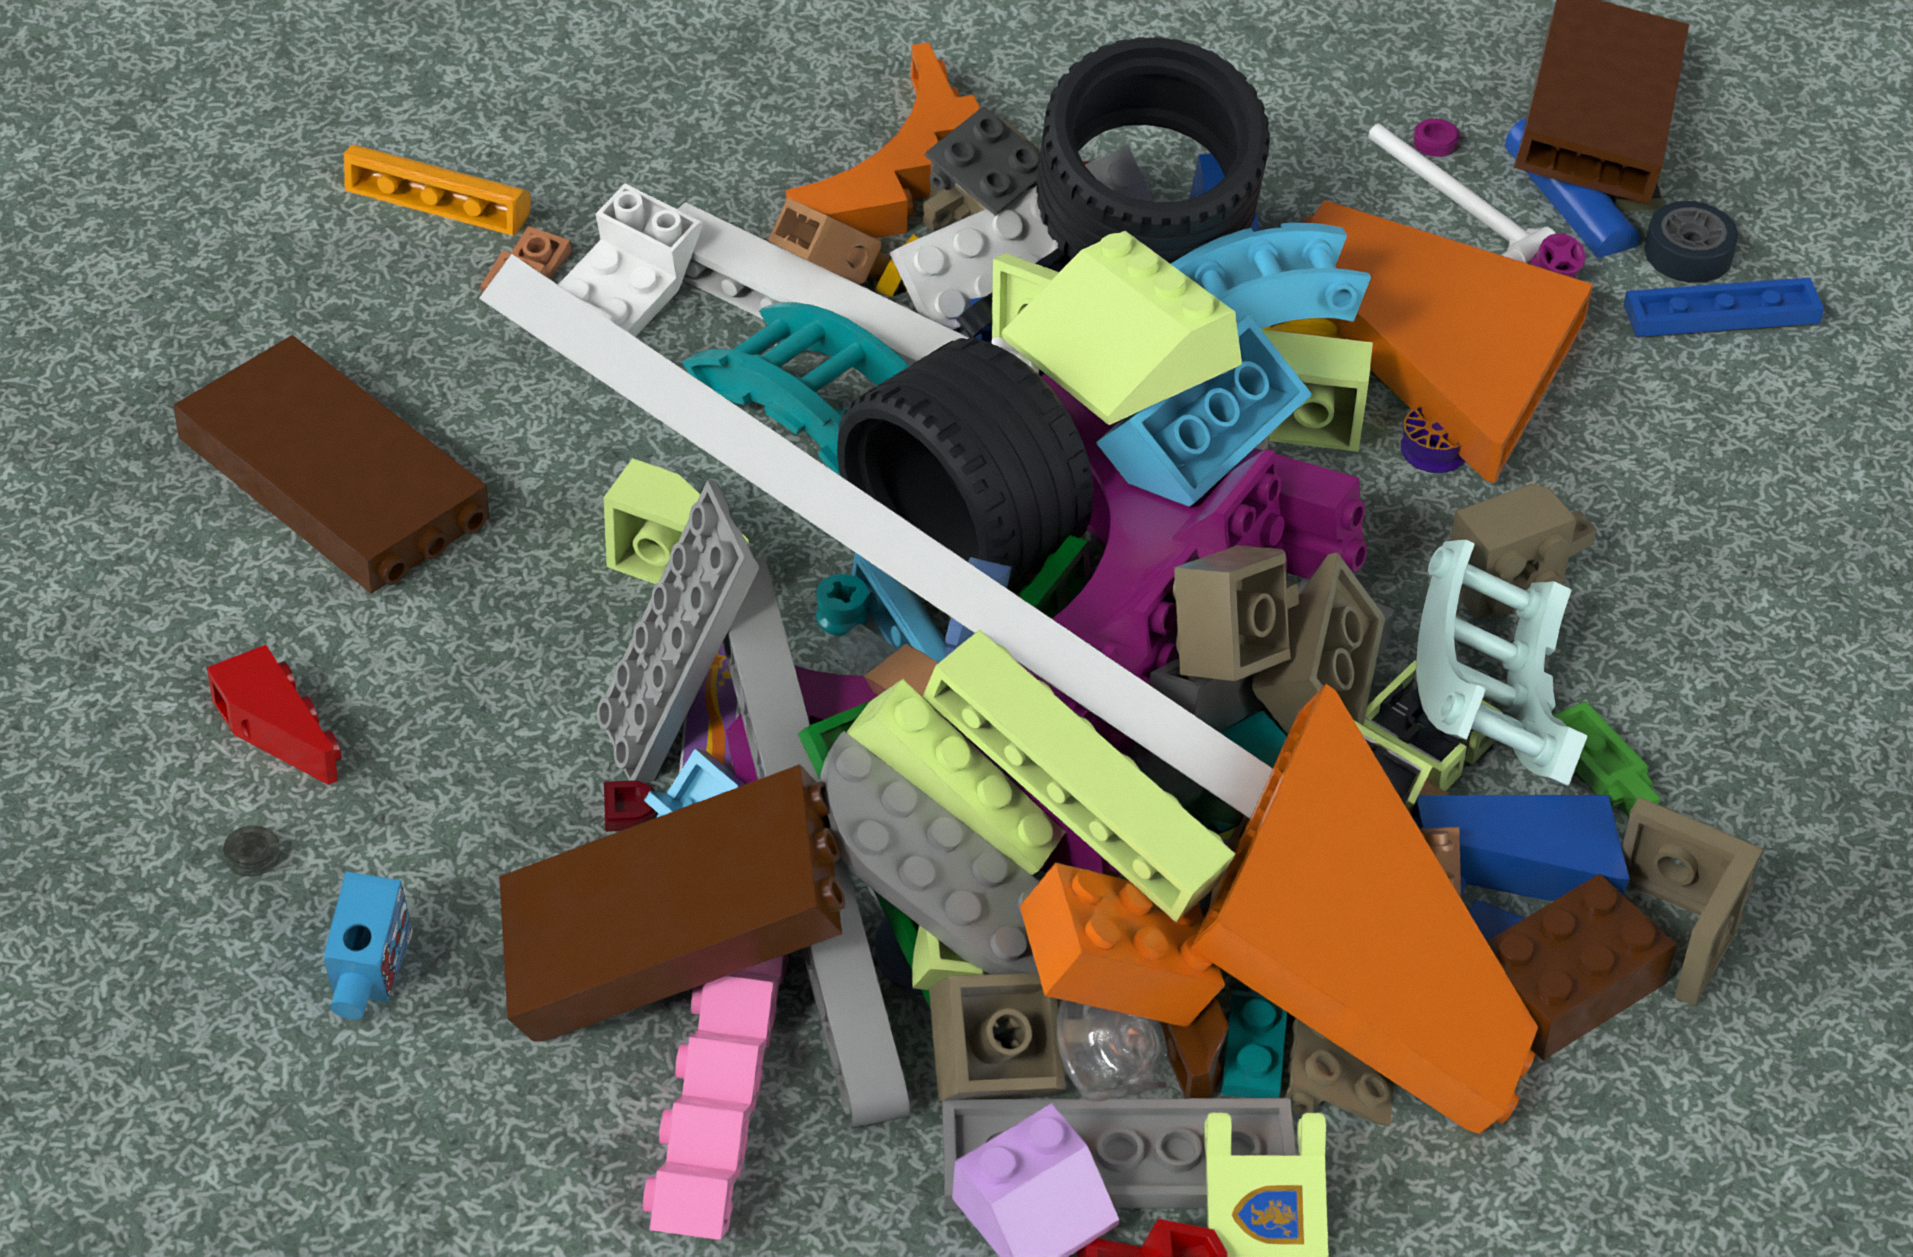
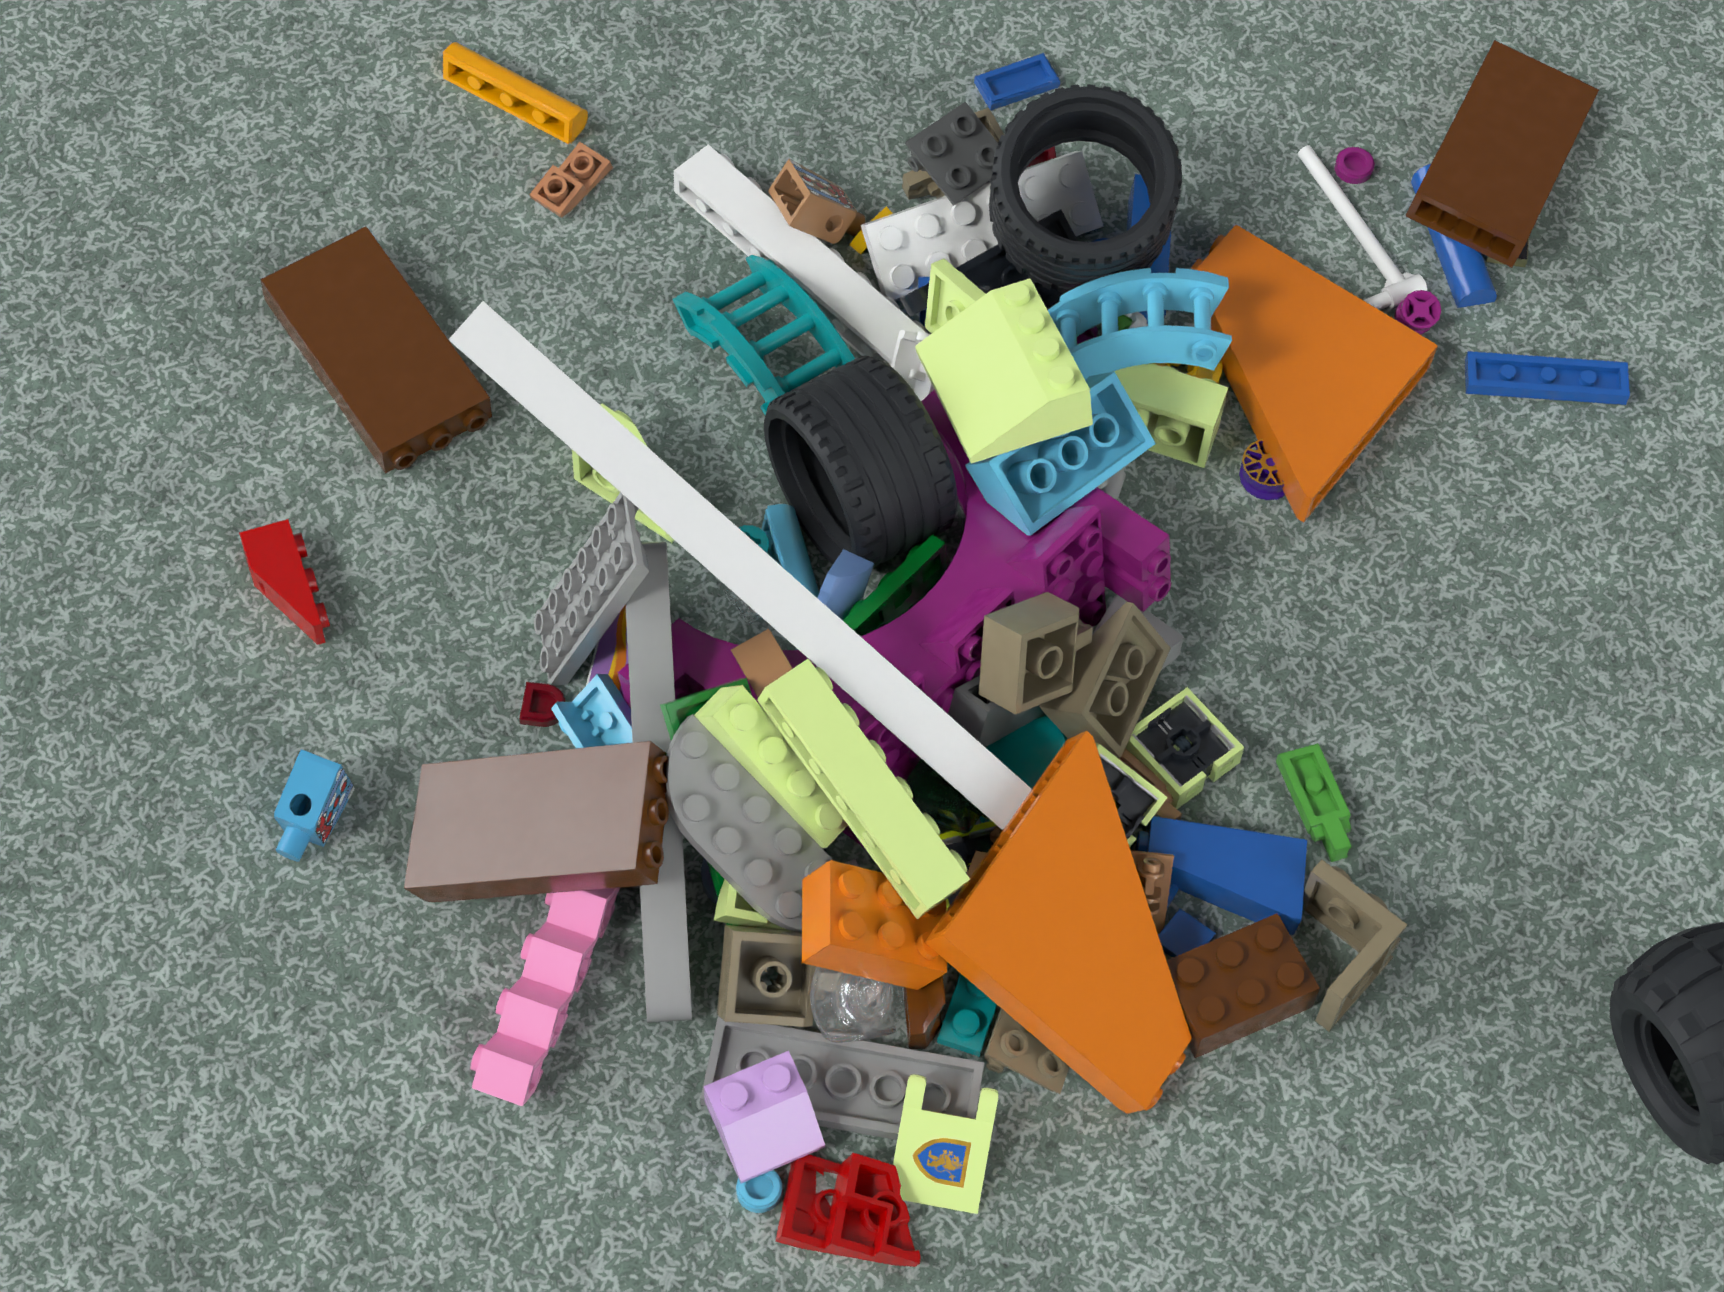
camera: 10 degrees right, 15 degrees up
(251, 850) = (247, 696): clear smoke tile -> none
(637, 259) = (635, 212): white slope -> none
(881, 189) = (868, 155): orange arch -> none
(1024, 106) = (1017, 81): none -> blue tile
(1454, 691) = (1266, 777): light aqua fence -> none
(1521, 540) = (1298, 596): dark tan hinge -> none
(1691, 241) = (1540, 289): black wheel -> none

